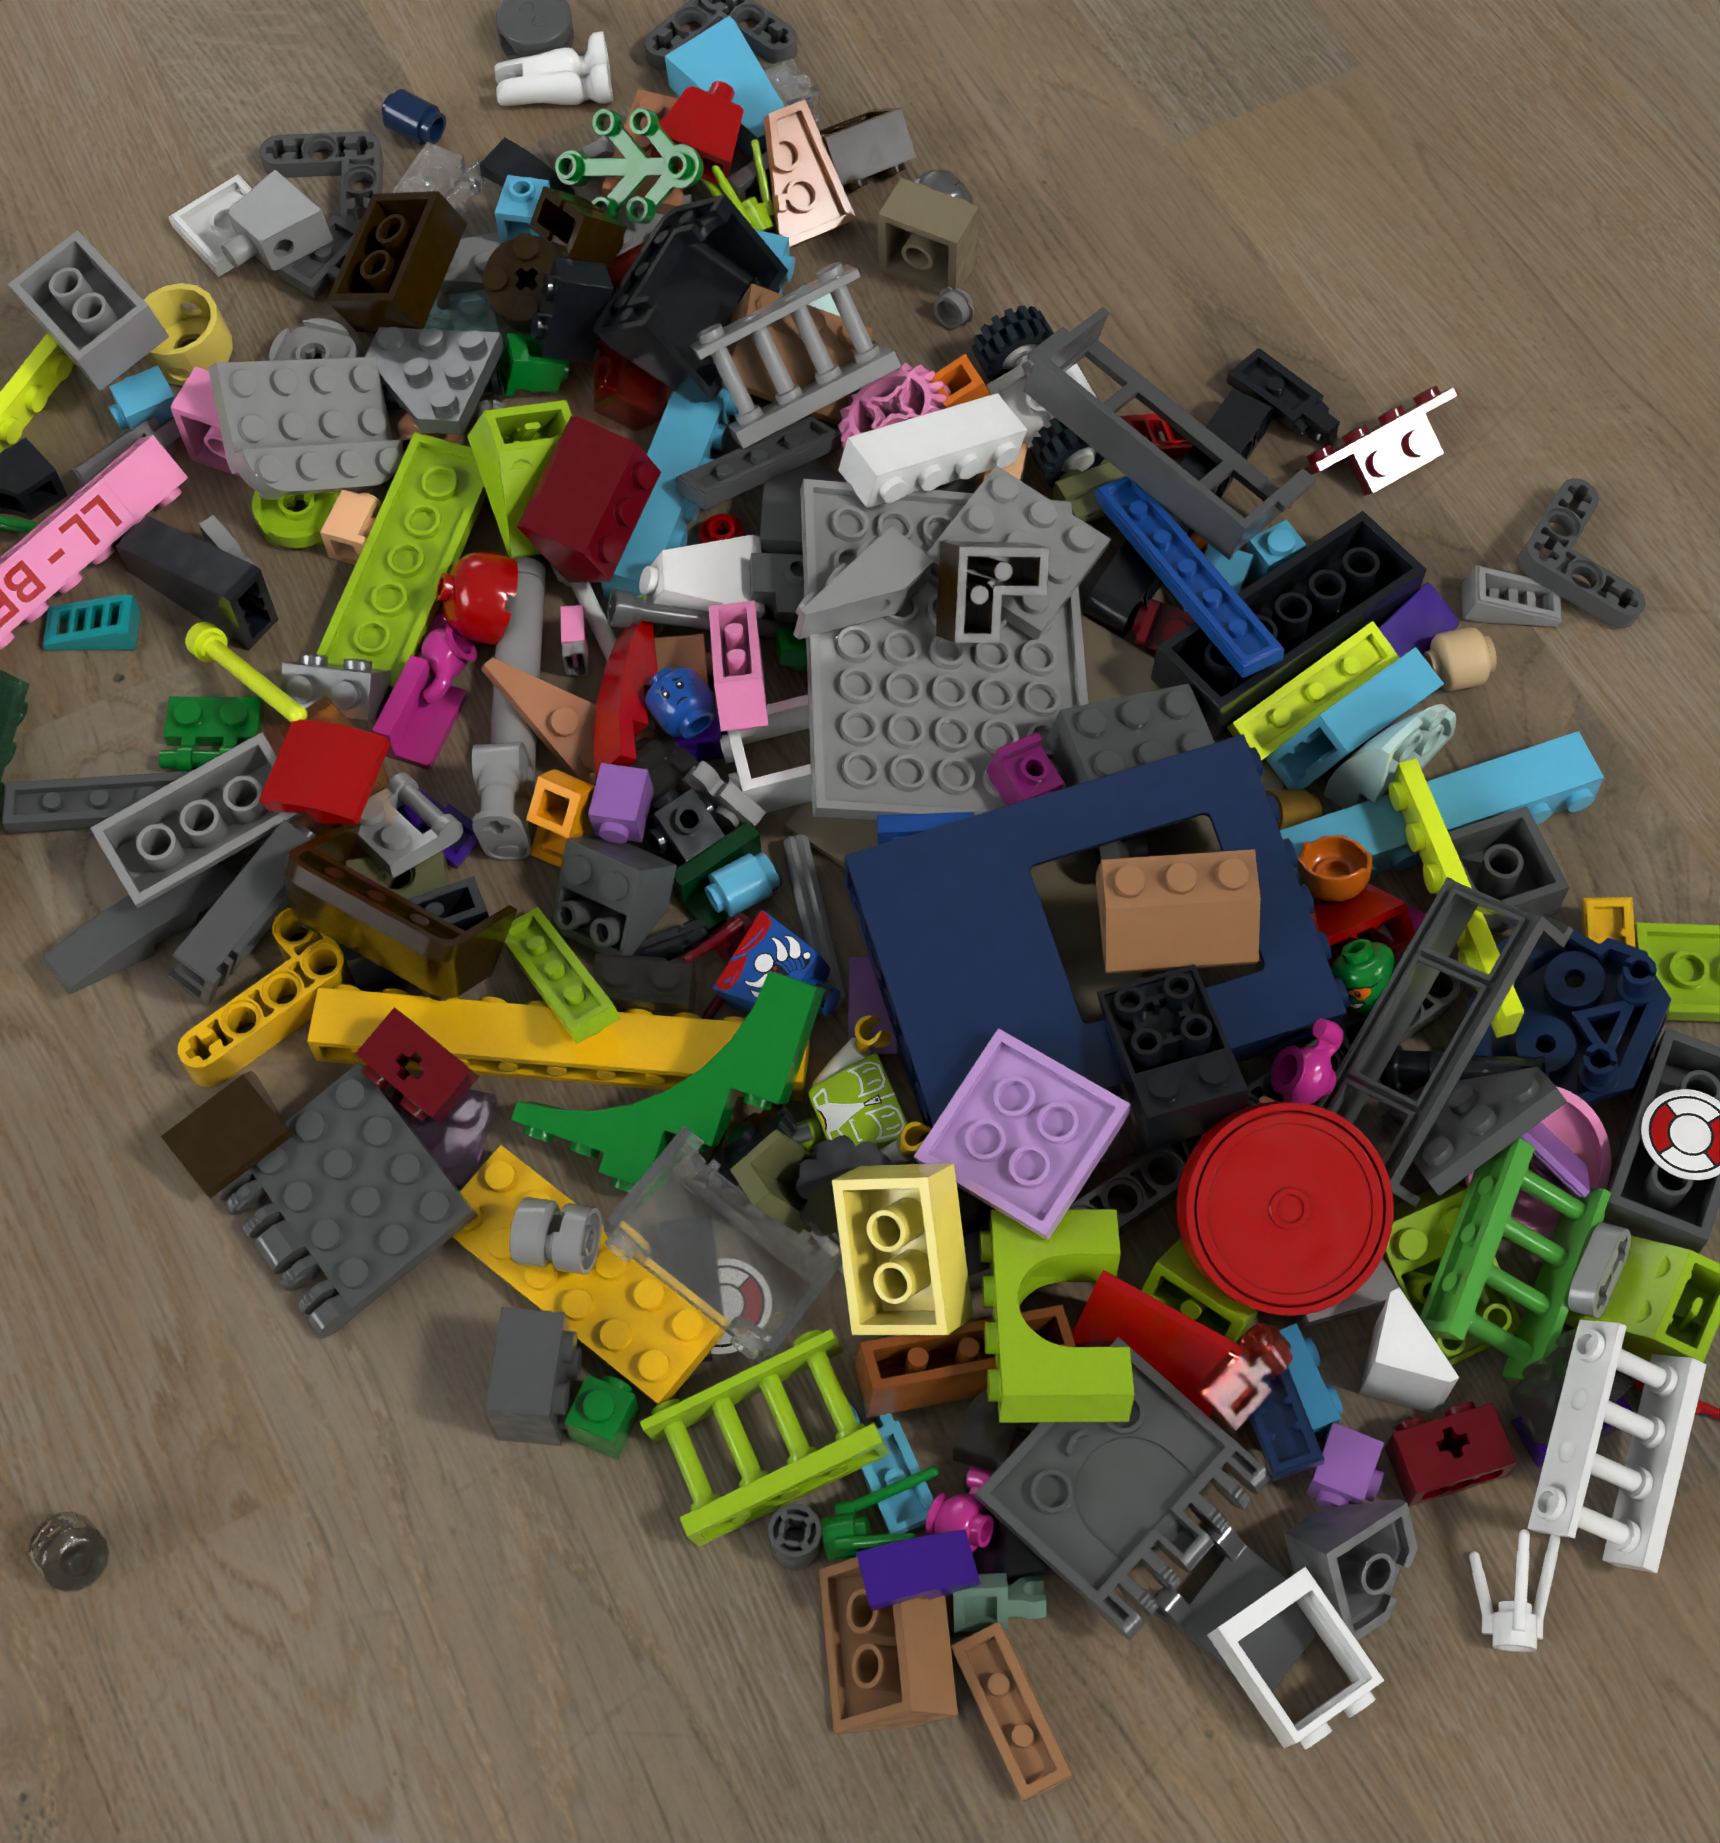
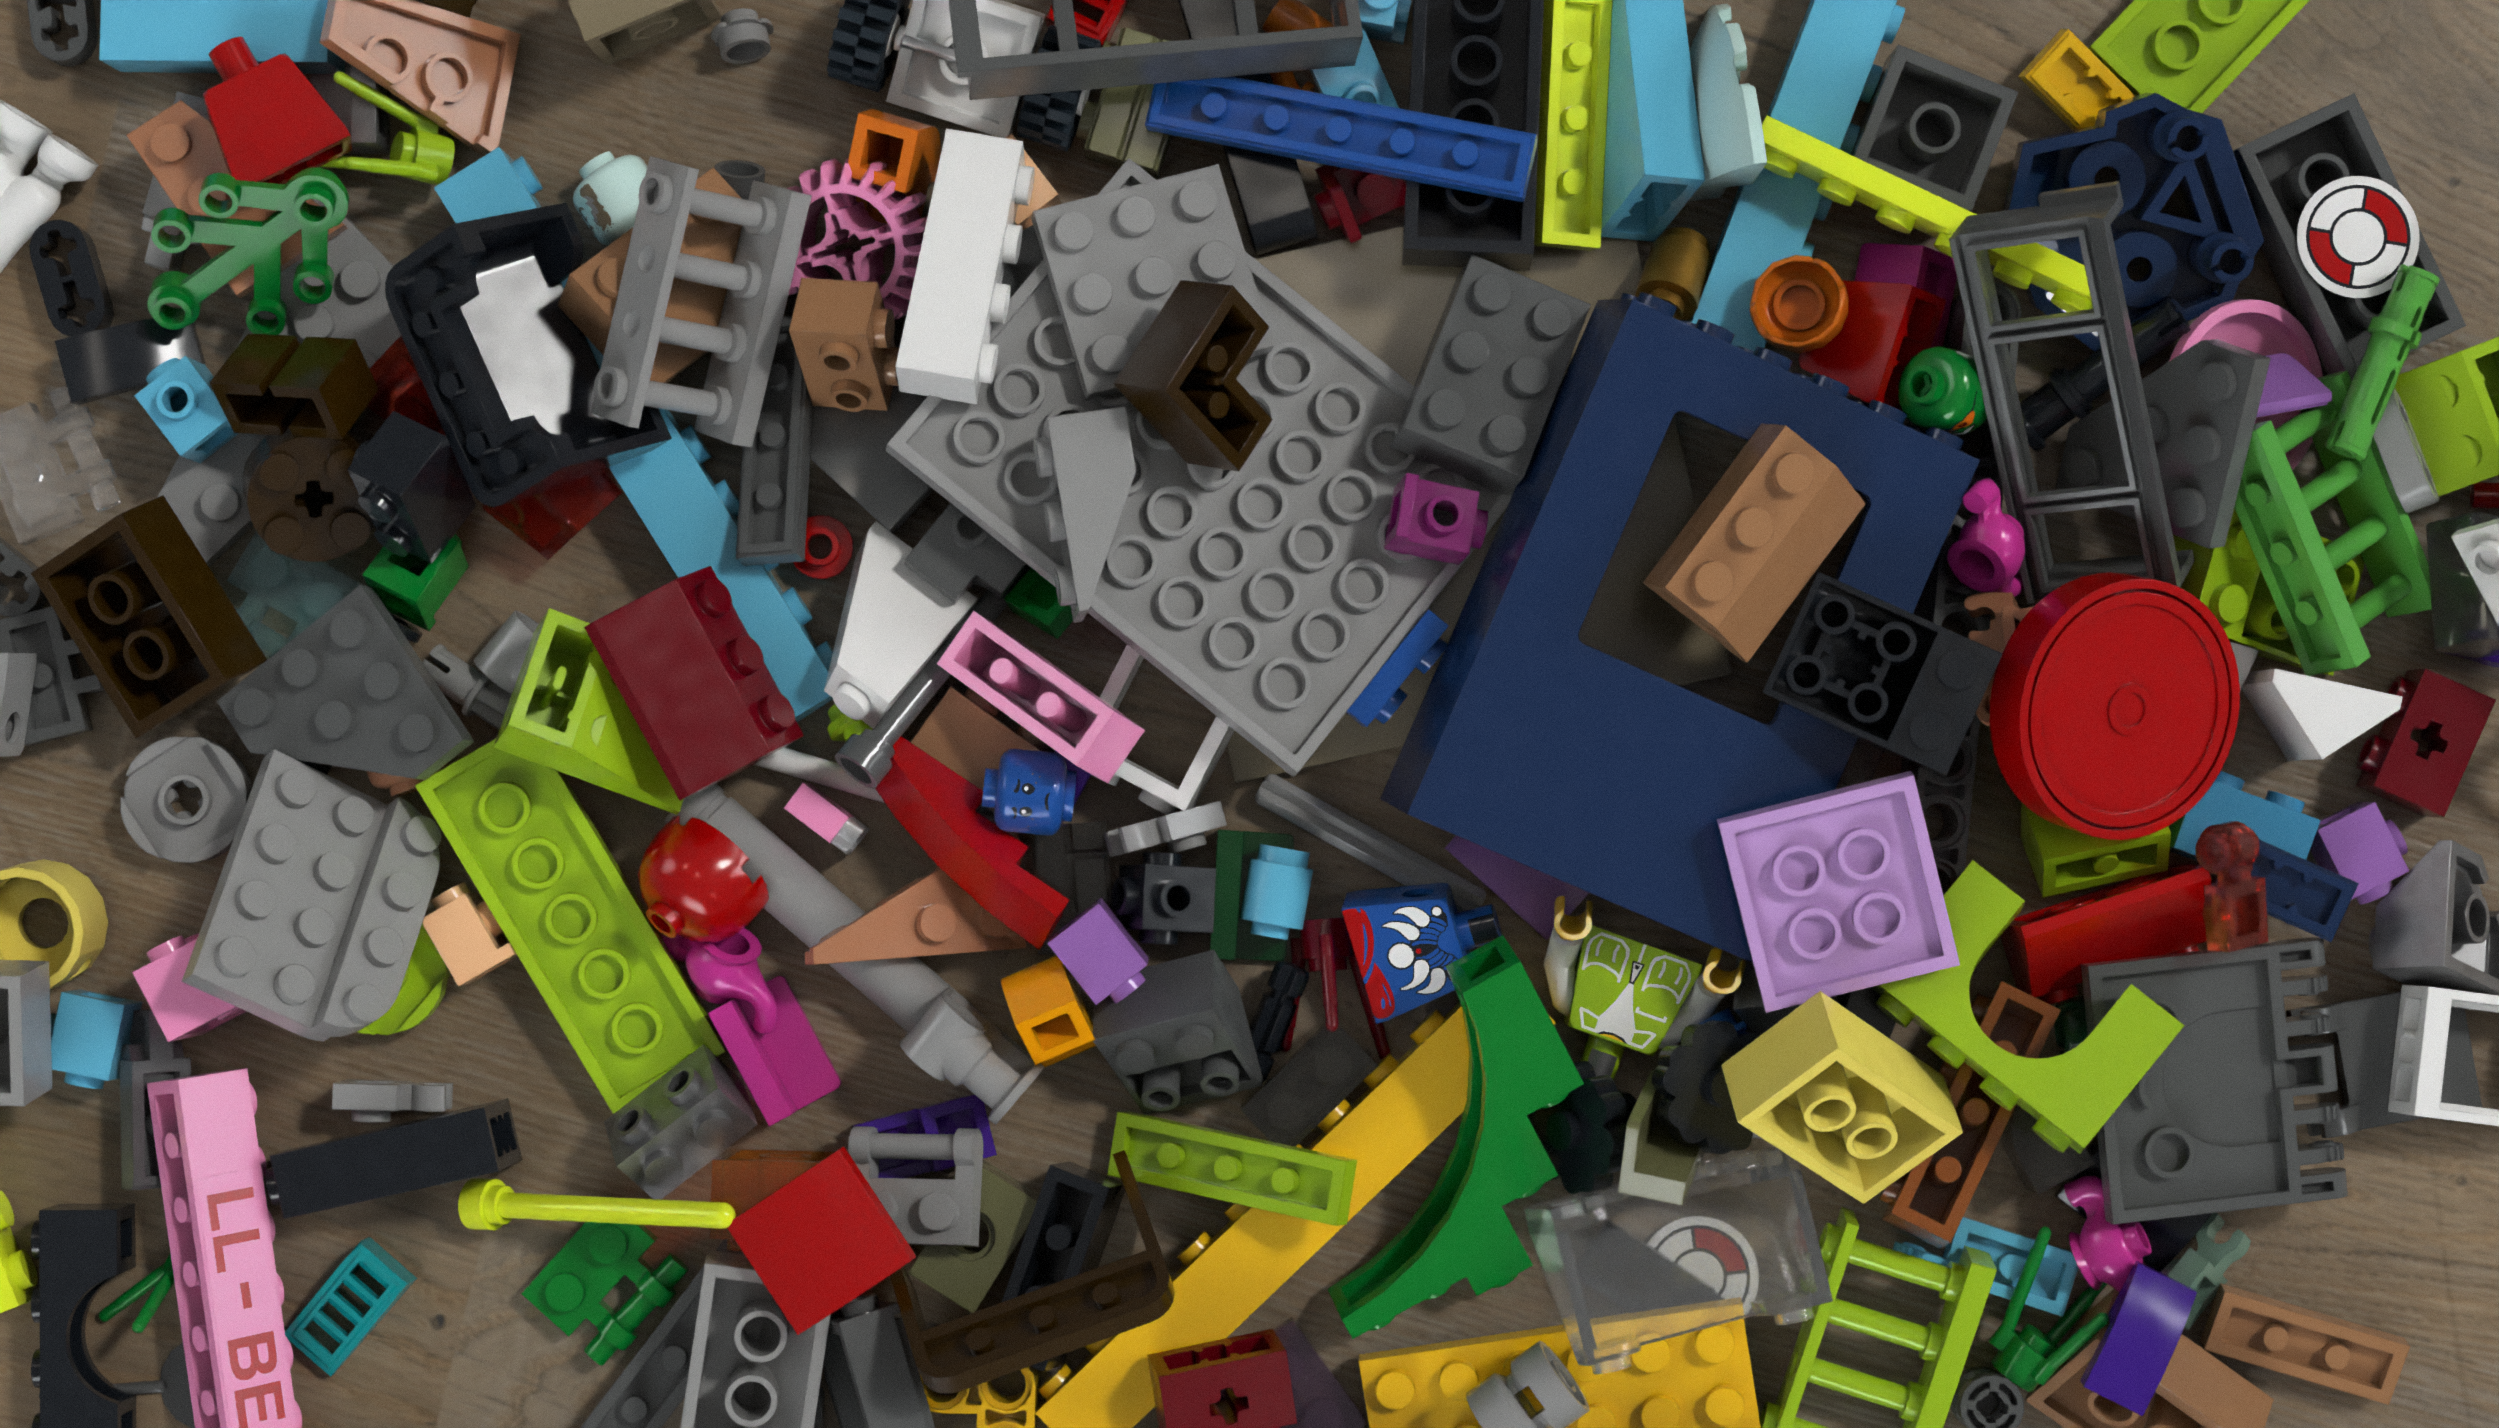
camera: 55 degrees left, 25 degrees up
(549, 137) = (56, 284): none -> black beam
(833, 420) = (845, 344): none -> medium nougat brick
(1654, 1194) = (2385, 354): none -> bright green pin

